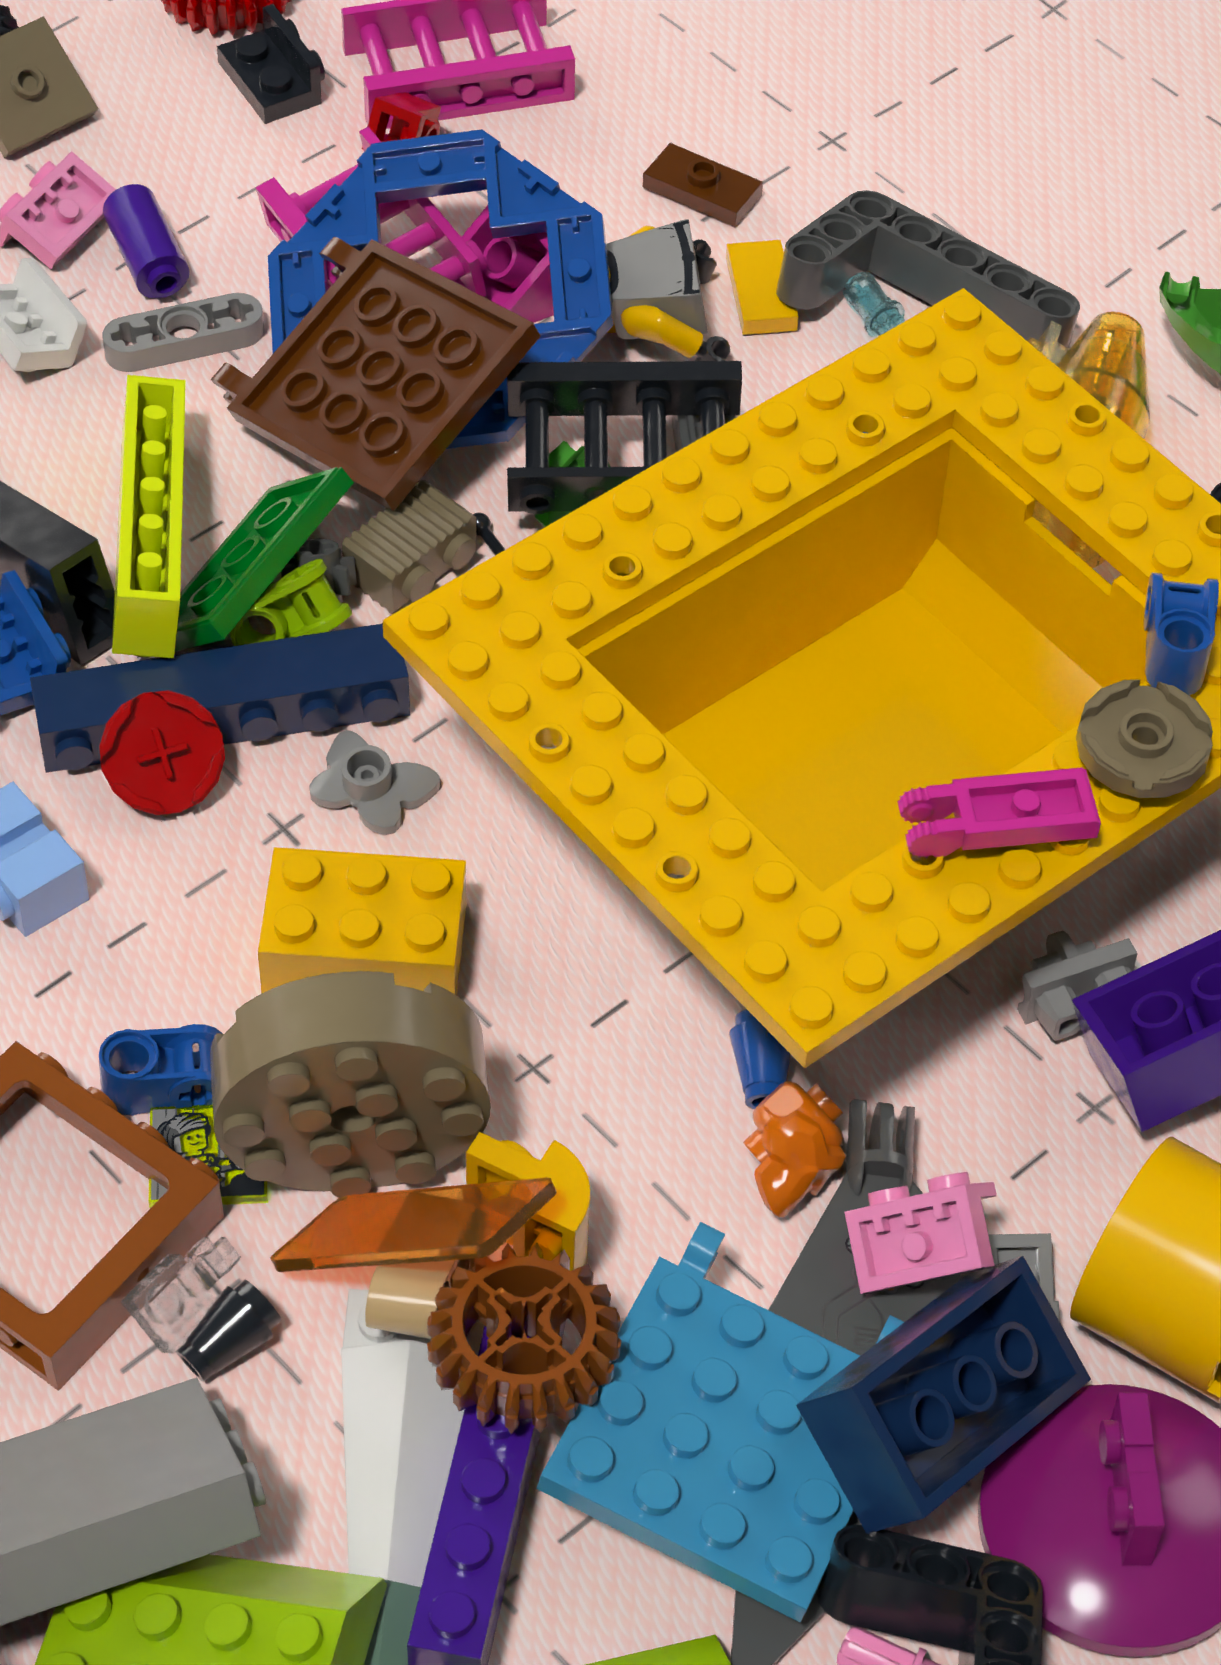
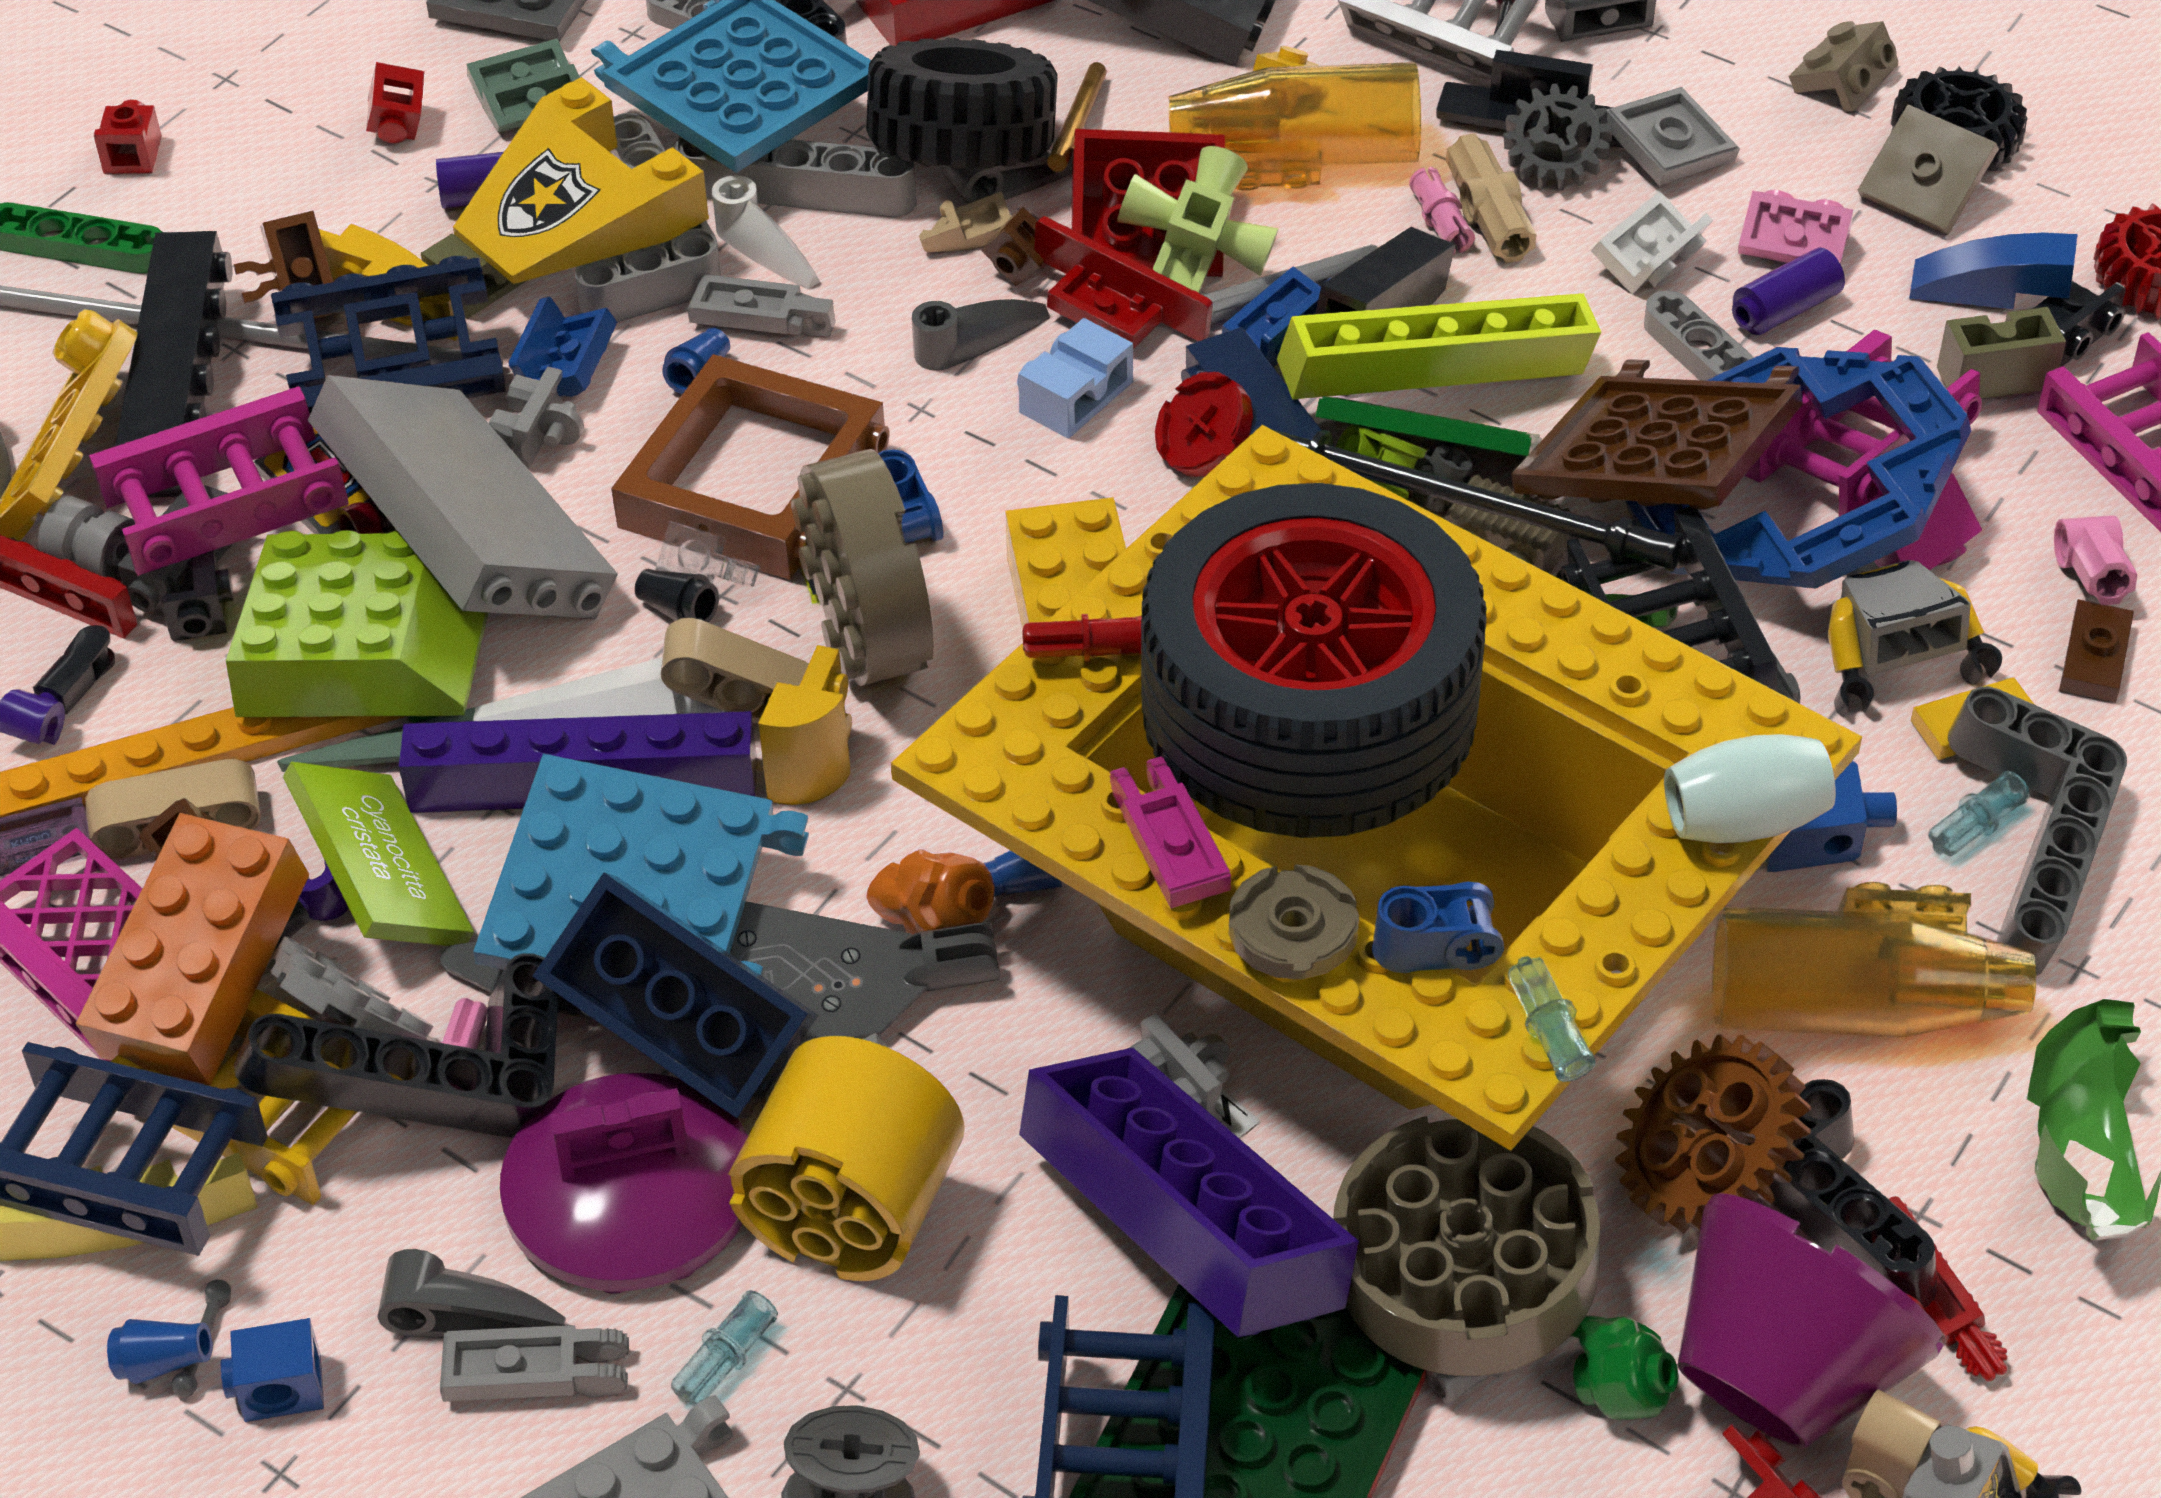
camera: 80 degrees right, 5 degrees down
(191, 85) = (1996, 269): none -> blue slope
(319, 116) = (2007, 354): none -> olive brick
(411, 117) = (2022, 413): red brick -> none
(414, 1225) = (751, 639): clear orange piece -> none
(523, 1374) = (660, 729): dark orange gear -> none
(530, 430) = (1621, 538): none -> black bar
(586, 140) = (2097, 555): none -> bright pink piece
(700, 824) = (1083, 637): none -> red axle
(854, 614) = (1312, 659): none -> black wheel
(921, 1235) = (829, 965): bright pink bracket -> none
(1064, 359) = (1749, 788): none -> light aqua piece

